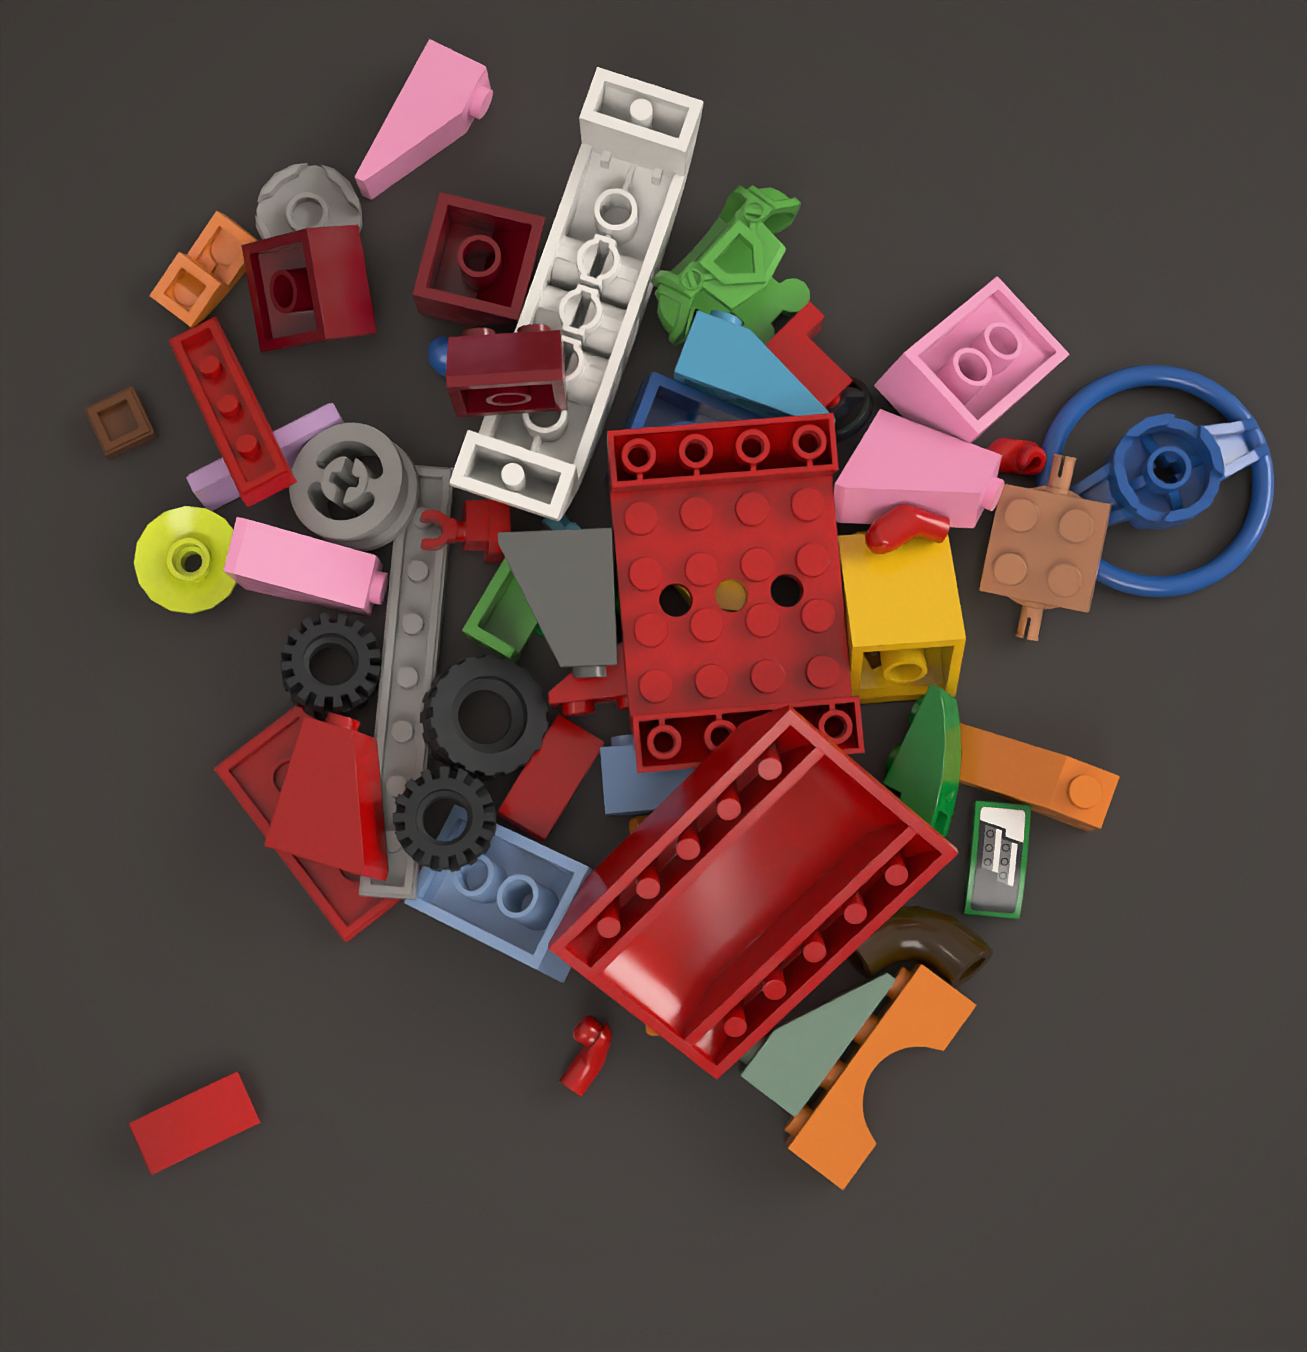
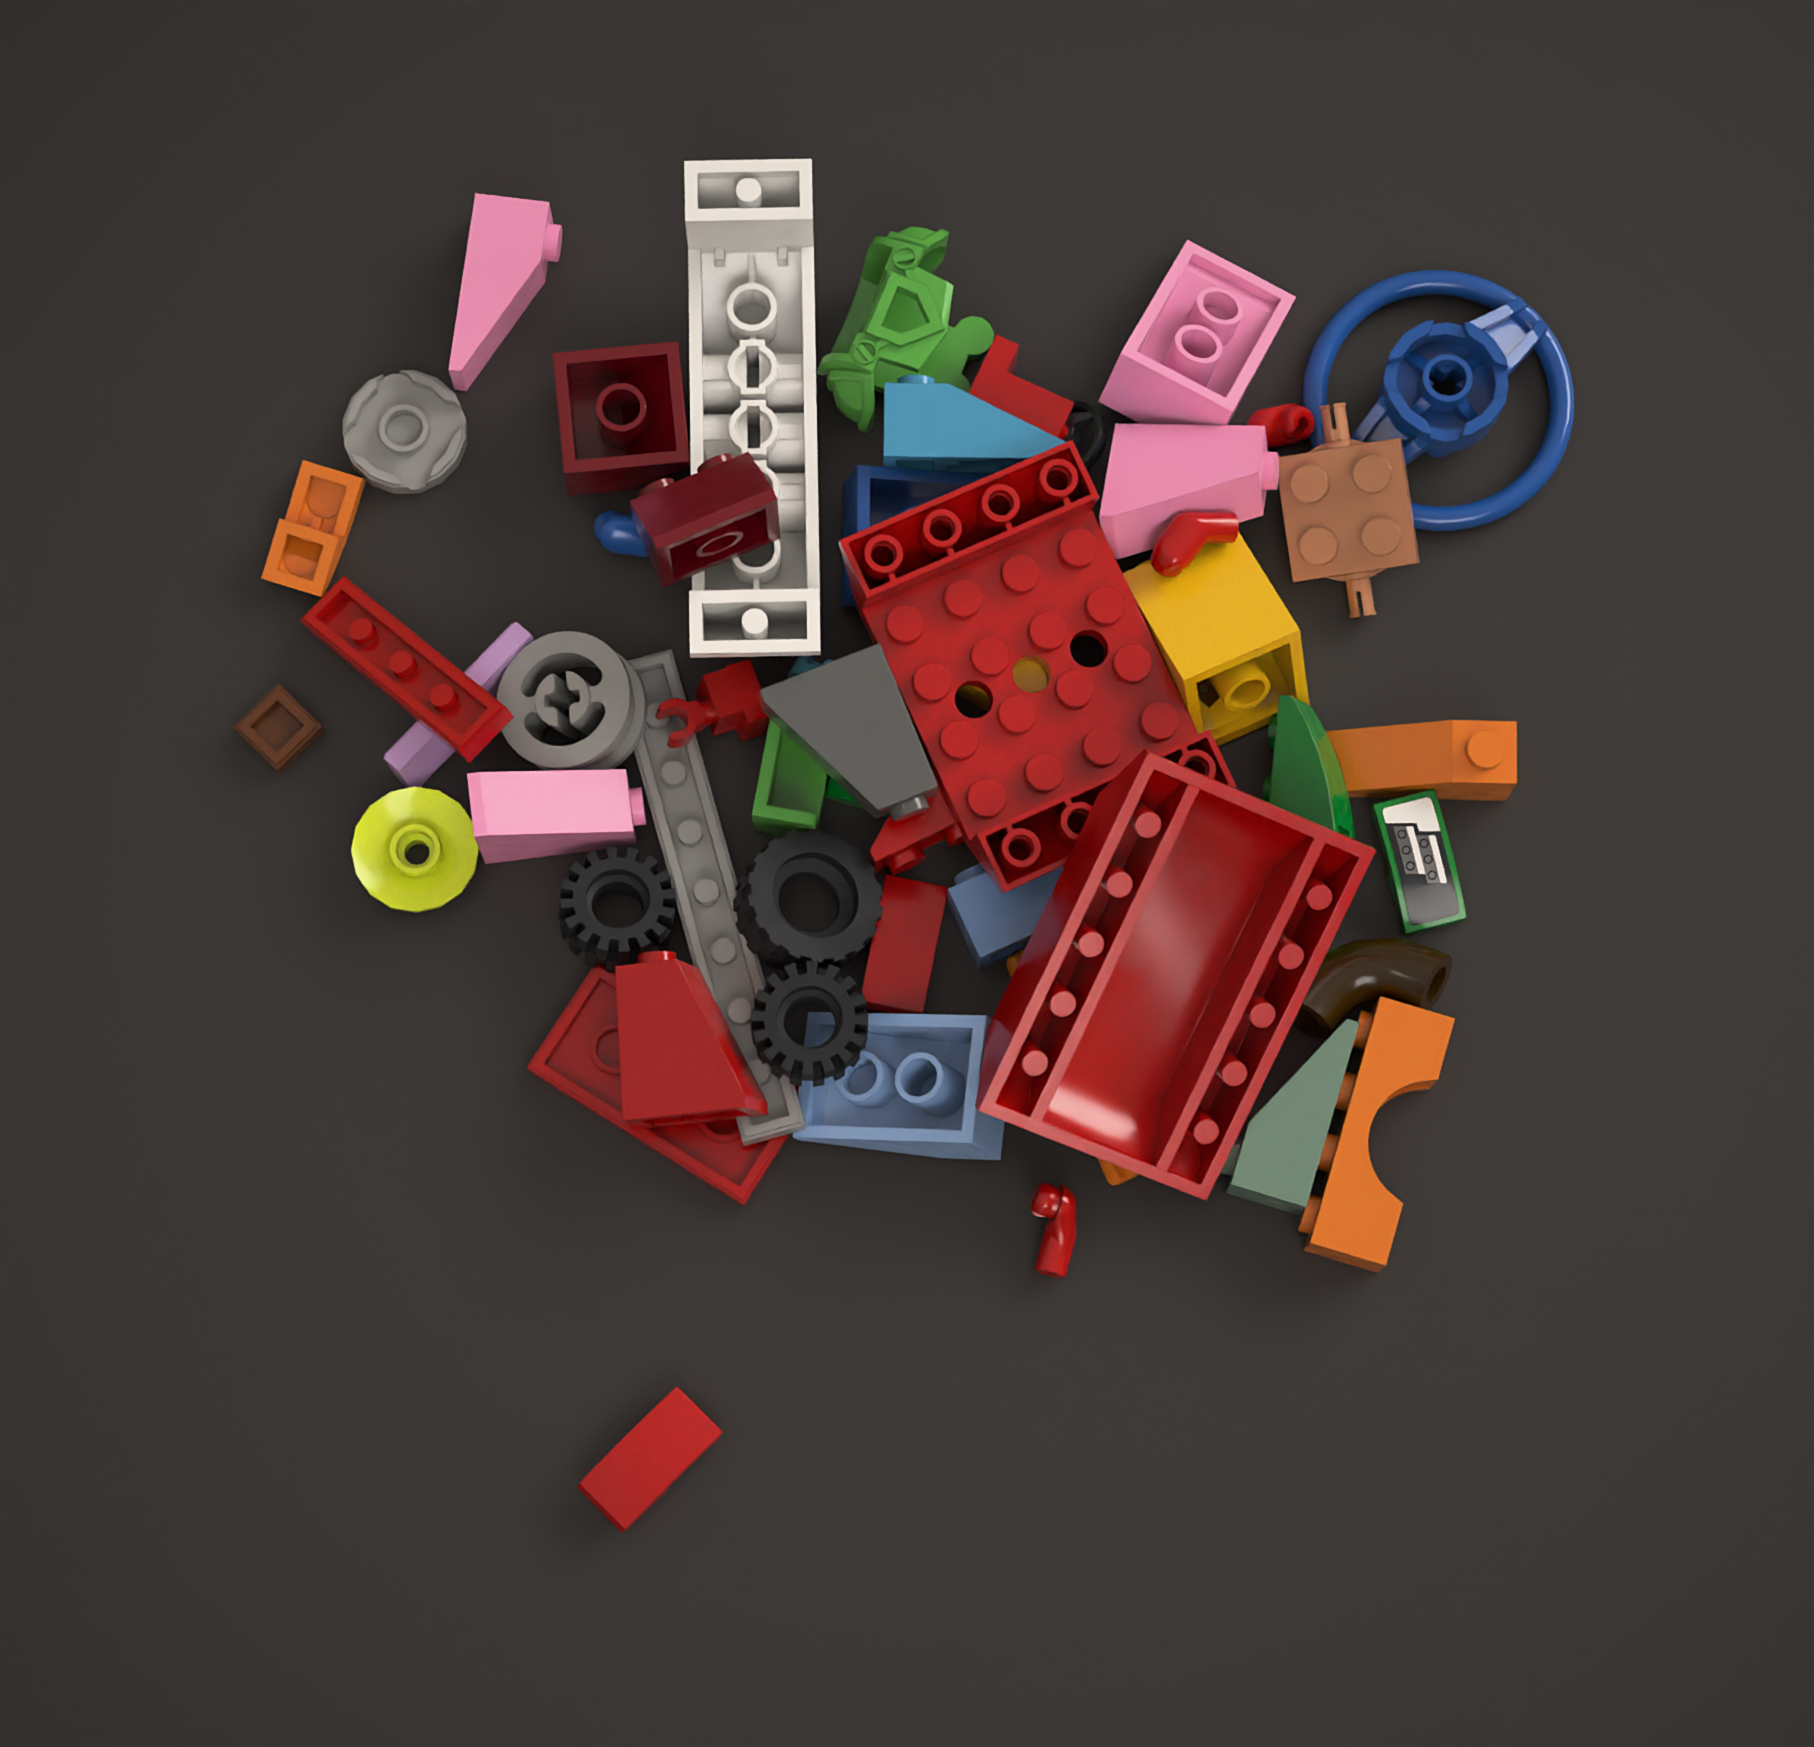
camera: 25 degrees left, 5 degrees down
(309, 287) = (439, 508): dark red slope -> none

